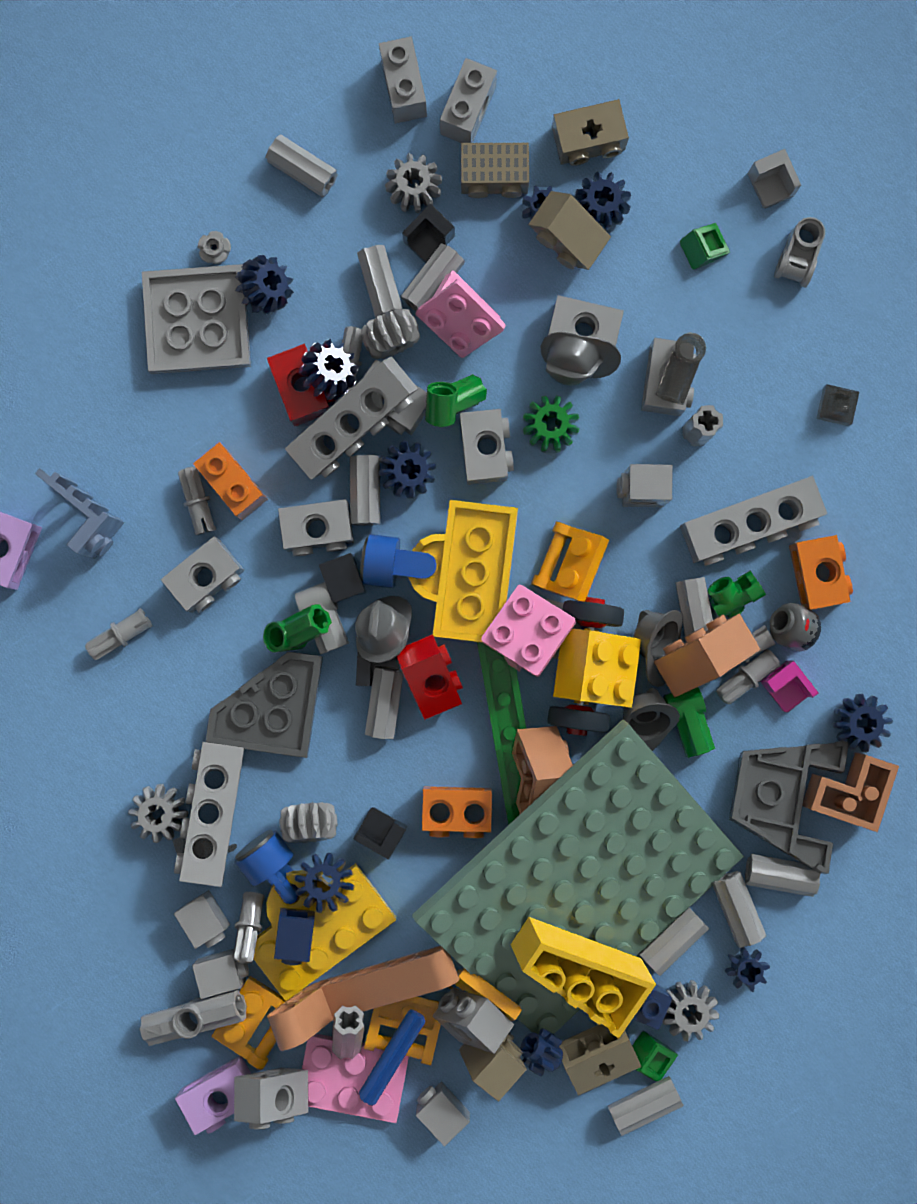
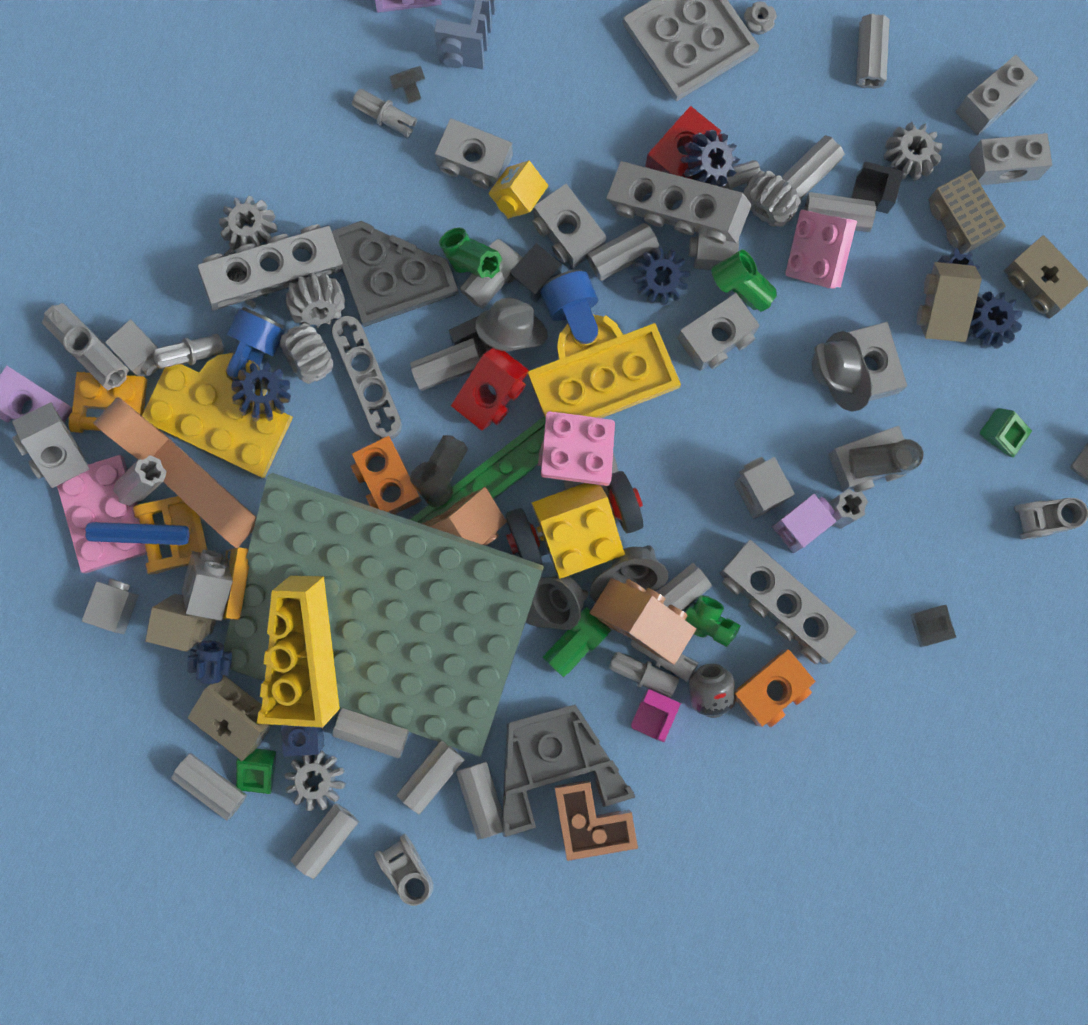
camera: 55 degrees right, 5 degrees down
(101, 598) = (407, 81): none -> clear smoke tile
(196, 500) = (534, 116): light grey axle -> none
(202, 920) = (174, 310): light grey brick -> none
(230, 481) = (567, 134): orange brick -> none
(260, 554) = (518, 189): none -> yellow brick
(263, 789) = (315, 300): none -> light grey gear
(264, 284) = (741, 70): dark blue gear -> none
(294, 936) = (200, 390): dark blue brick -> none
(355, 783) = (370, 376): none -> light grey beam
(380, 832) = (330, 423): black panel -> none
(481, 768) = (434, 477): none -> clear smoke piece
(561, 419) = (777, 368): green gear -> none
(577, 566) = (659, 467): light orange plate -> none
(696, 467) = (805, 522): none -> lavender brick
(745, 1029) = (324, 841): none -> light grey axle
(755, 973) = (370, 810): dark blue gear -> none
(801, 973) = (404, 869): none -> light grey piece
(867, 734) = (647, 798): dark blue gear -> none

